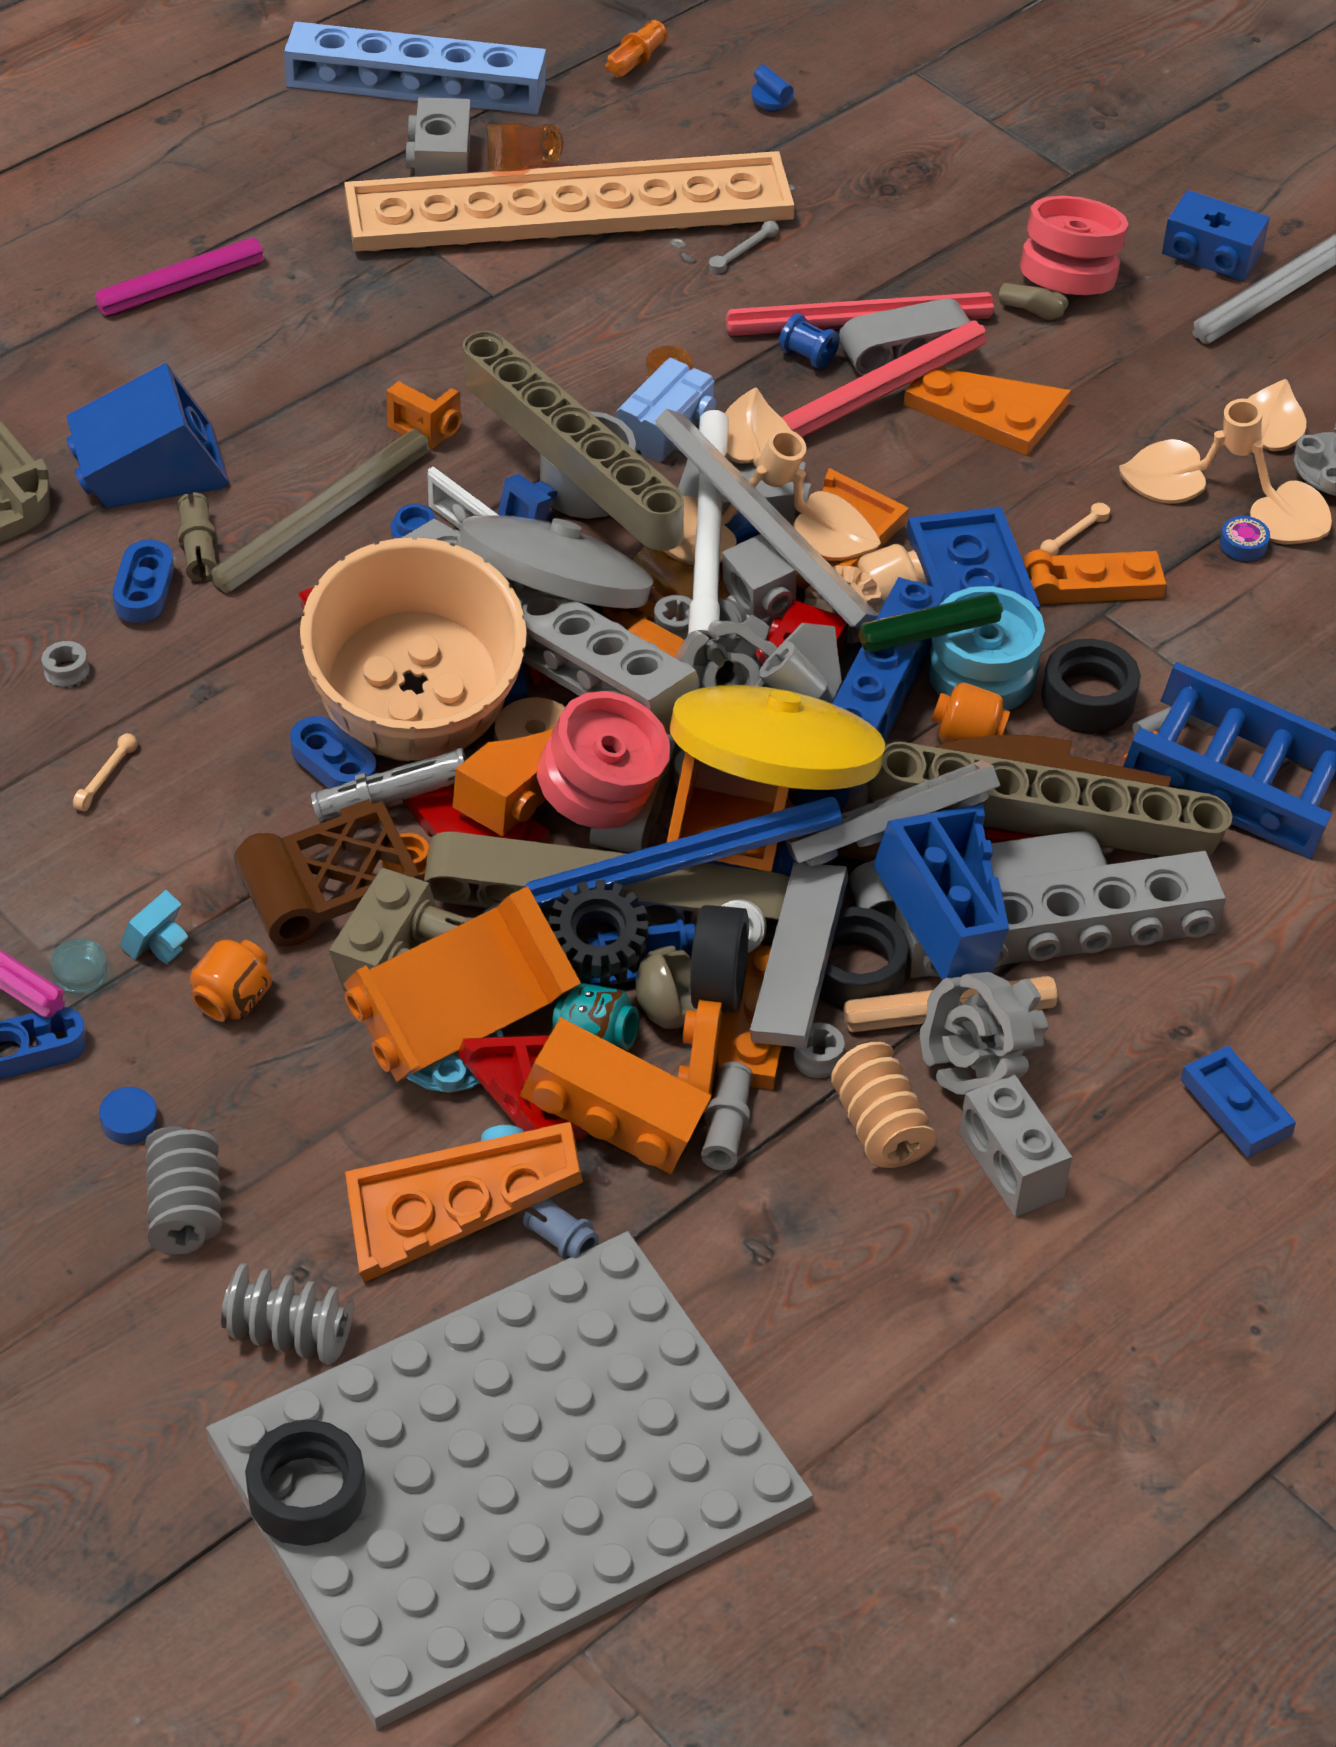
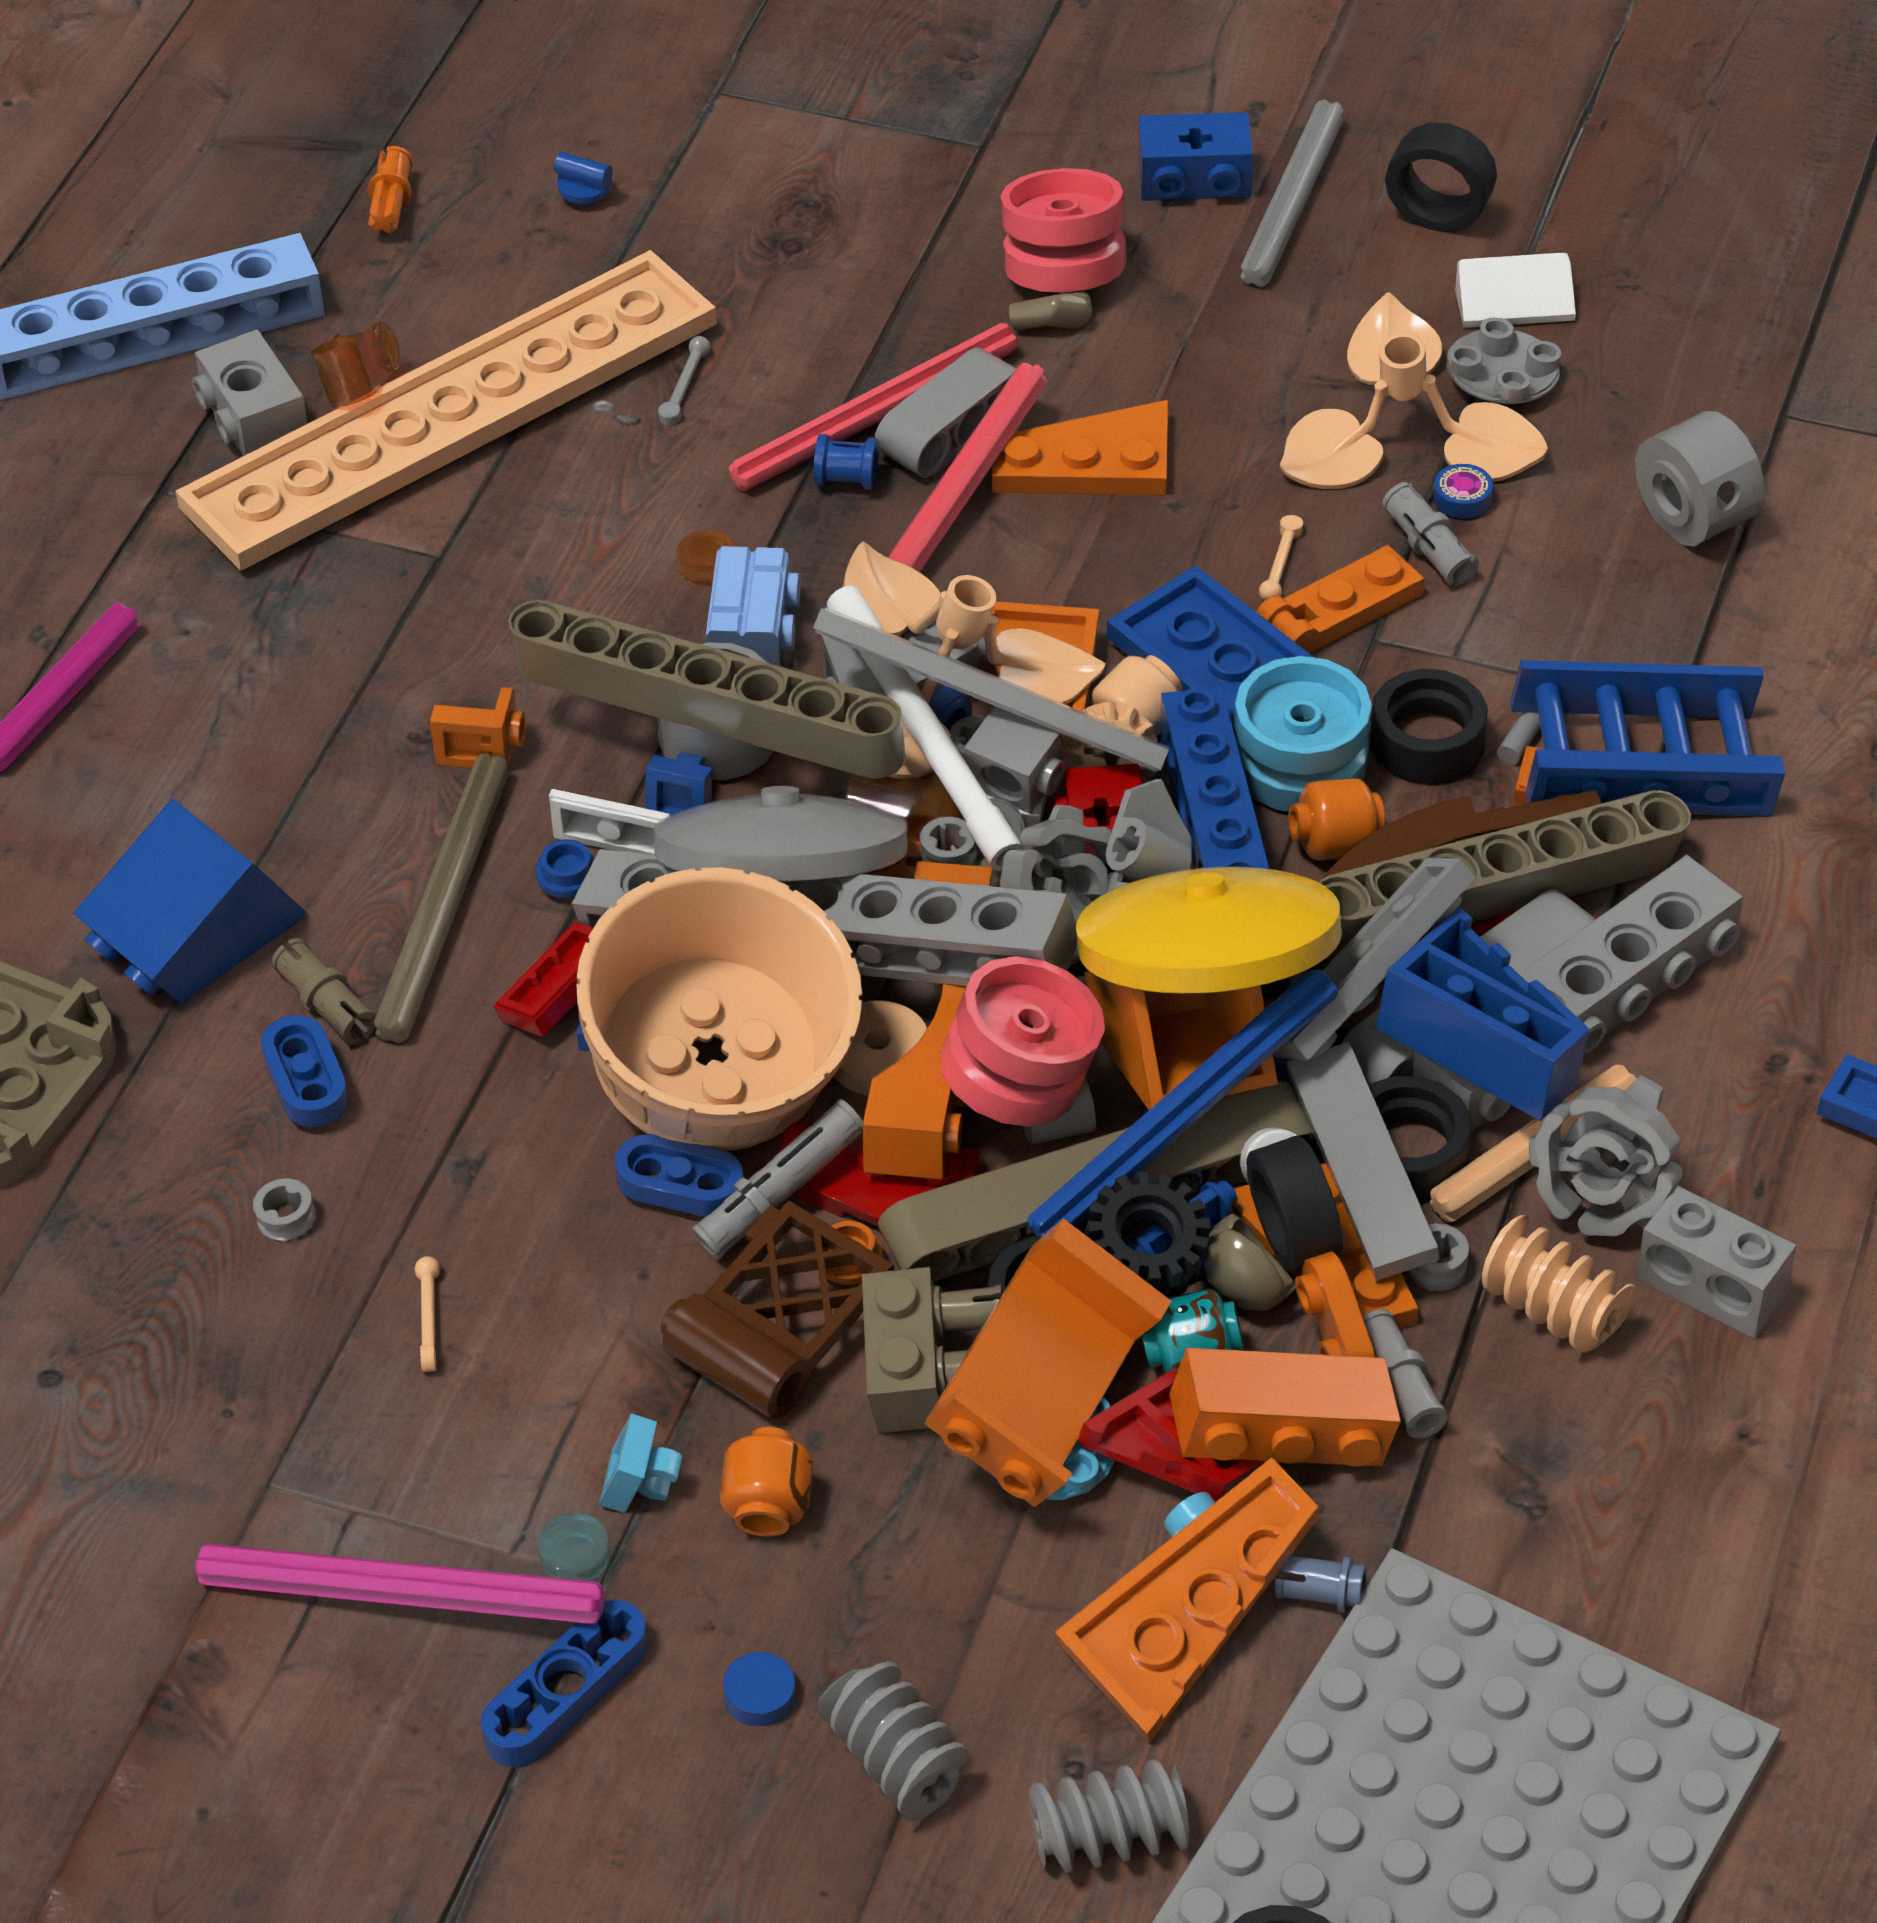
camera: 25 degrees left, 0 degrees up
(930, 622) = (1248, 730): dark green axle -> none
(1194, 556) = (1430, 534): none -> light grey pin

